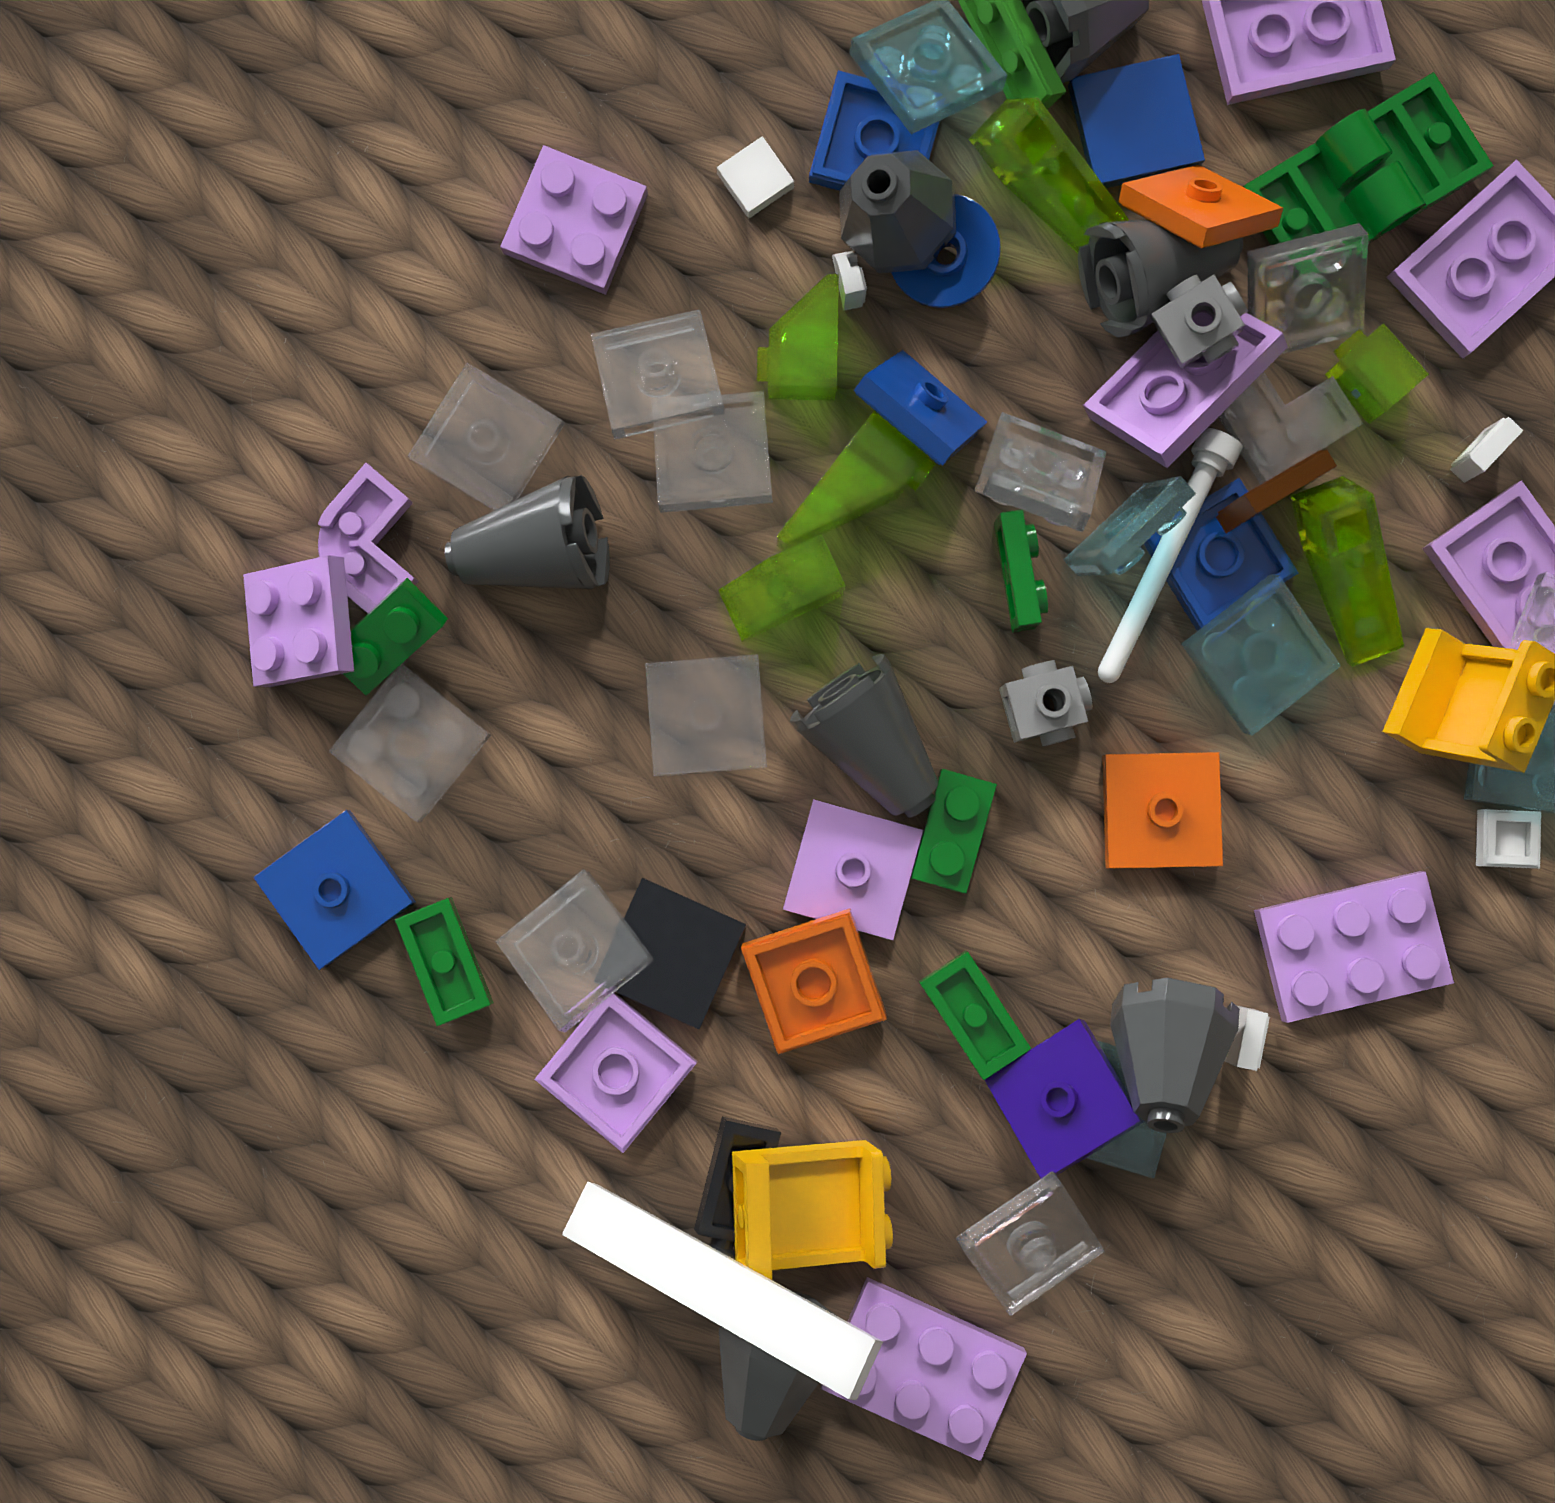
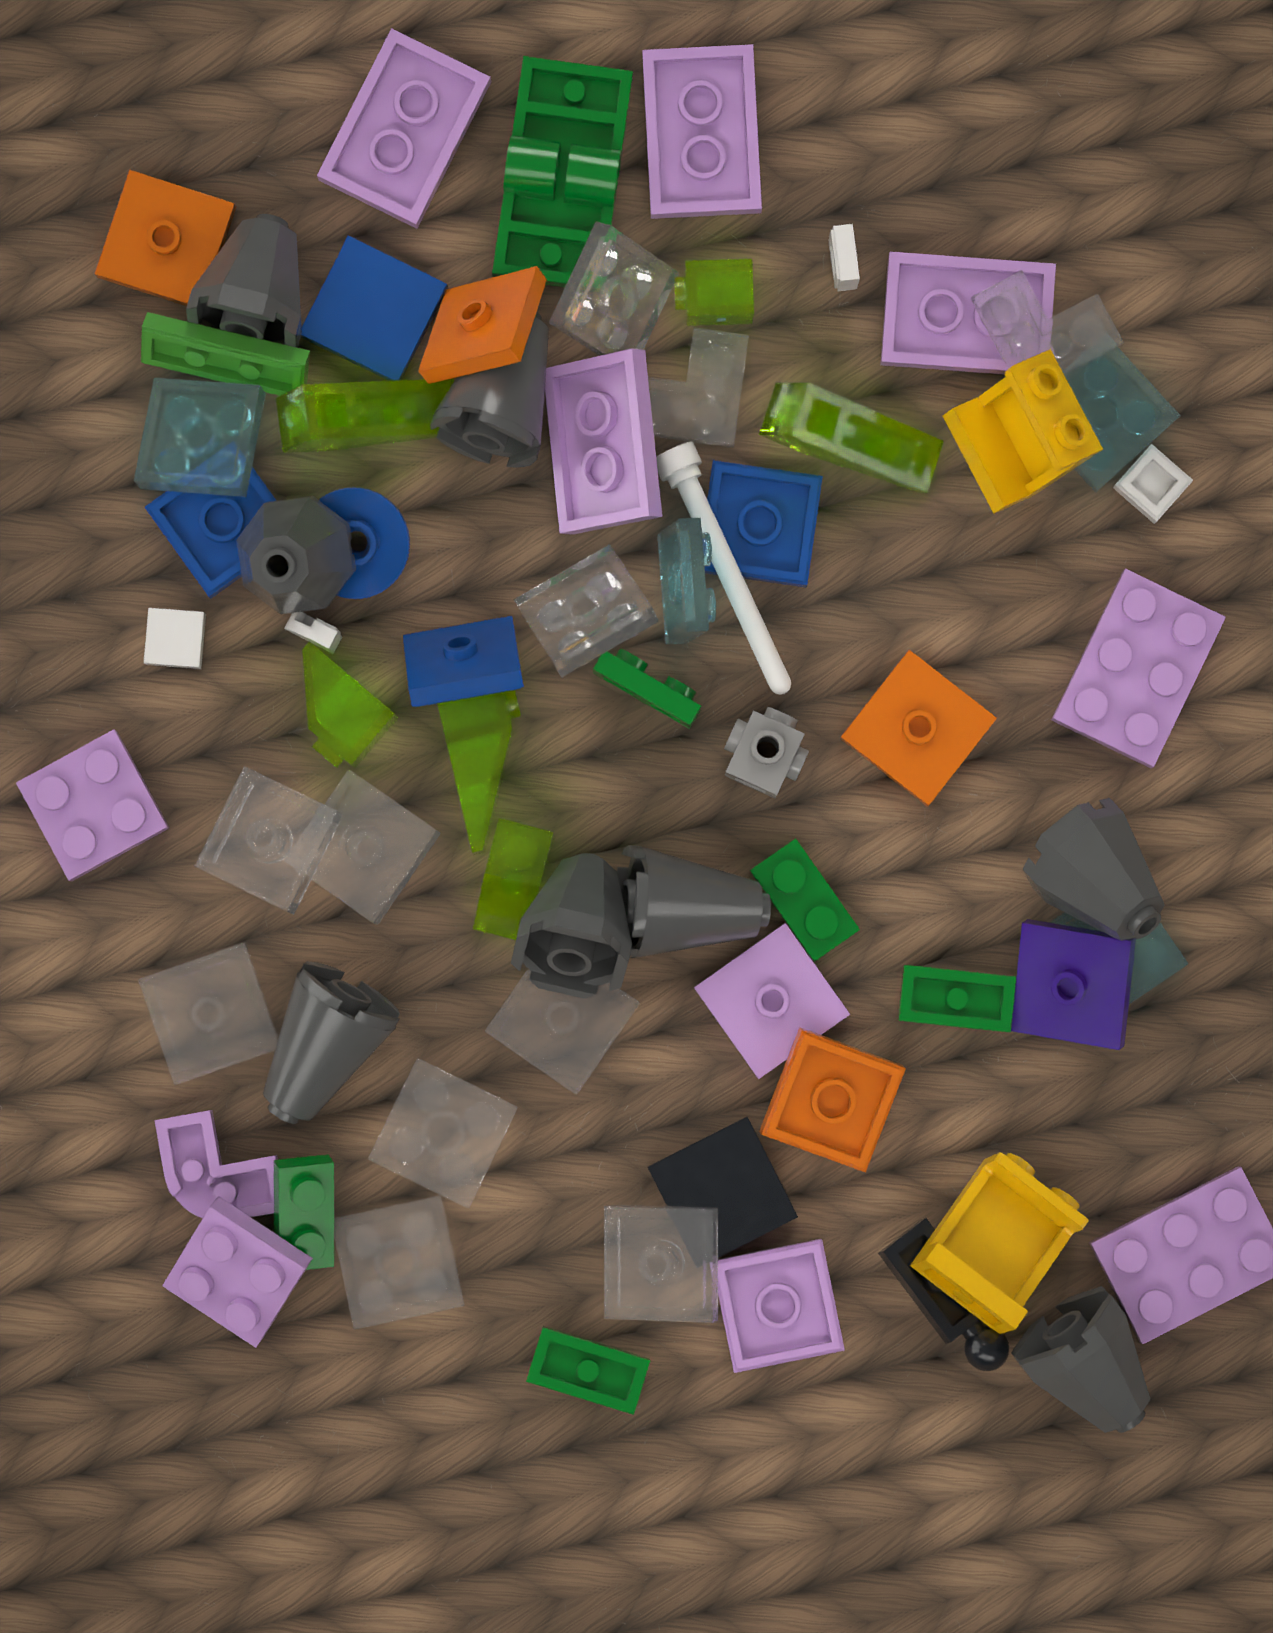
camera: 50 degrees left, 0 degrees up
(334, 889) = (463, 1411): blue plate -> none
(538, 695) = (443, 1133): none -> clear plate
(724, 1291) = (1000, 1353): white tile -> none
(781, 667) = (576, 930): none -> dark grey cone
(1030, 1243) = (1160, 1097): clear plate -> none
(1192, 341) = (568, 424): light grey brick -> none
(1250, 1039) = (1139, 807): white tile -> none
(1261, 654) = (861, 557): clear light blue plate -> none
(1275, 490) = (745, 445): reddish brown tile -> none

